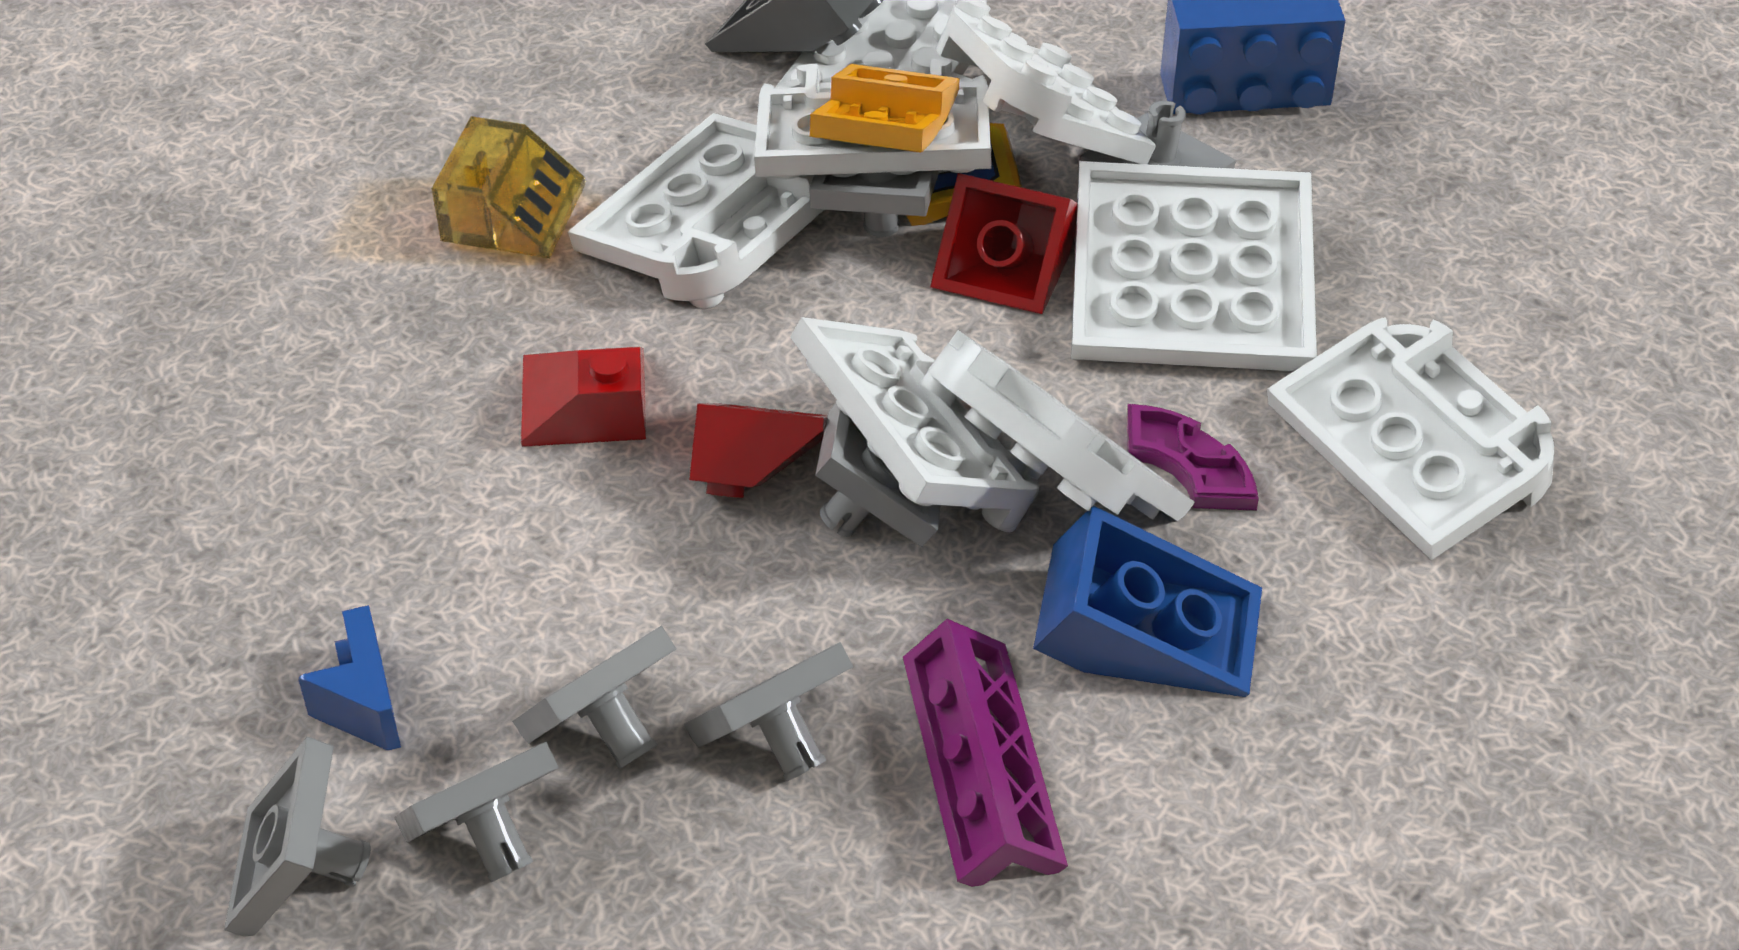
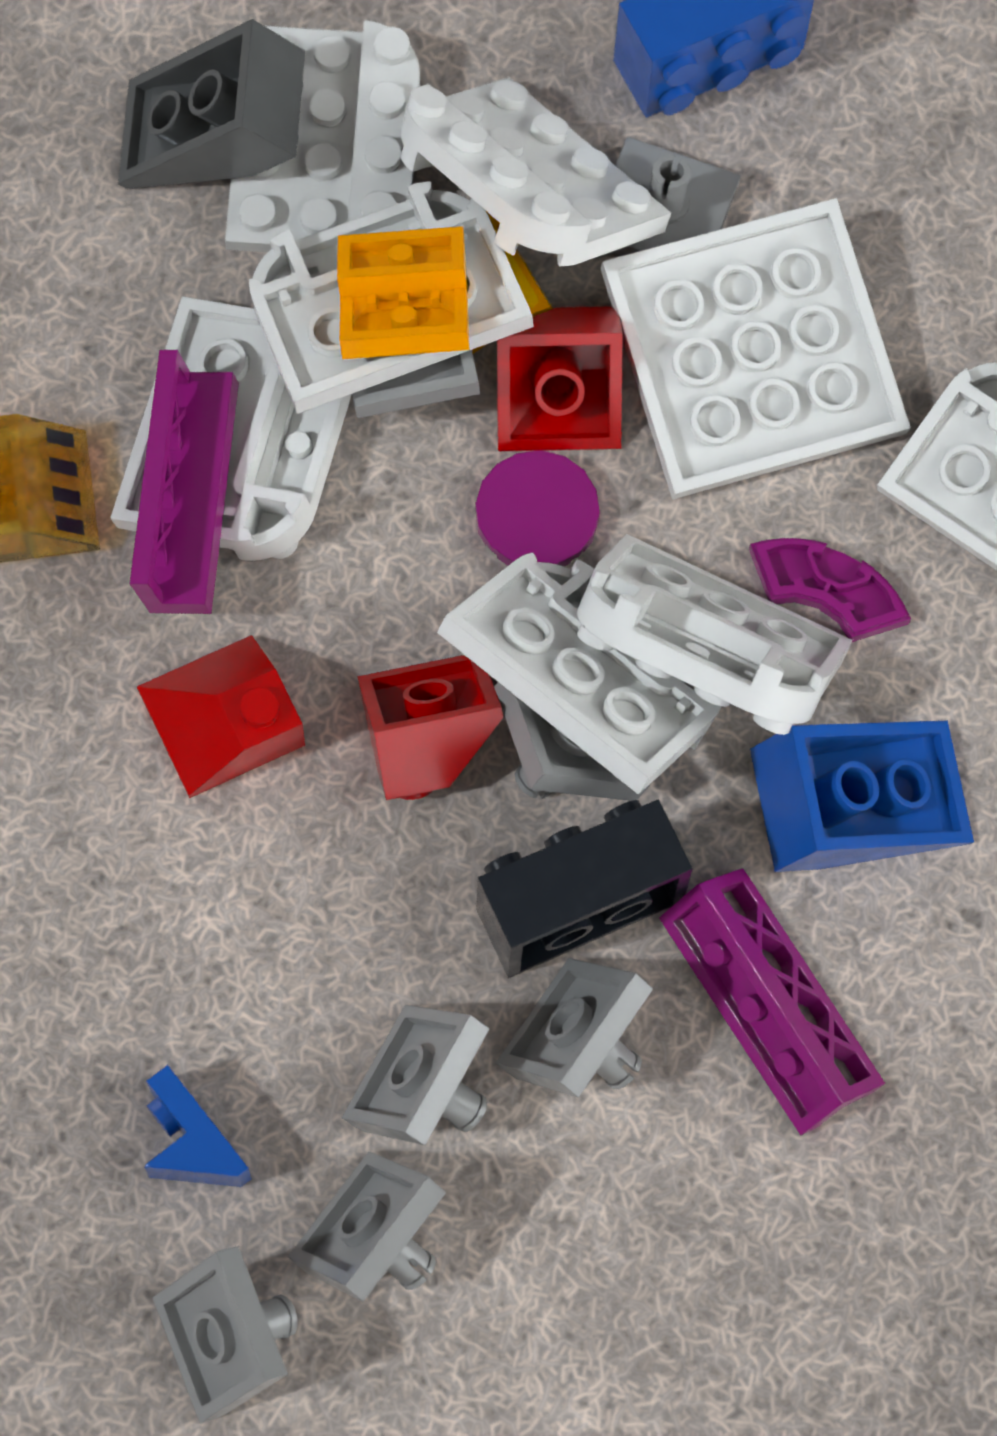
camera: 25 degrees left, 25 degrees up
(633, 219) = (183, 487): none -> magenta fence
(829, 582) = (582, 885): none -> black brick
(940, 312) = (537, 507): none -> magenta tile

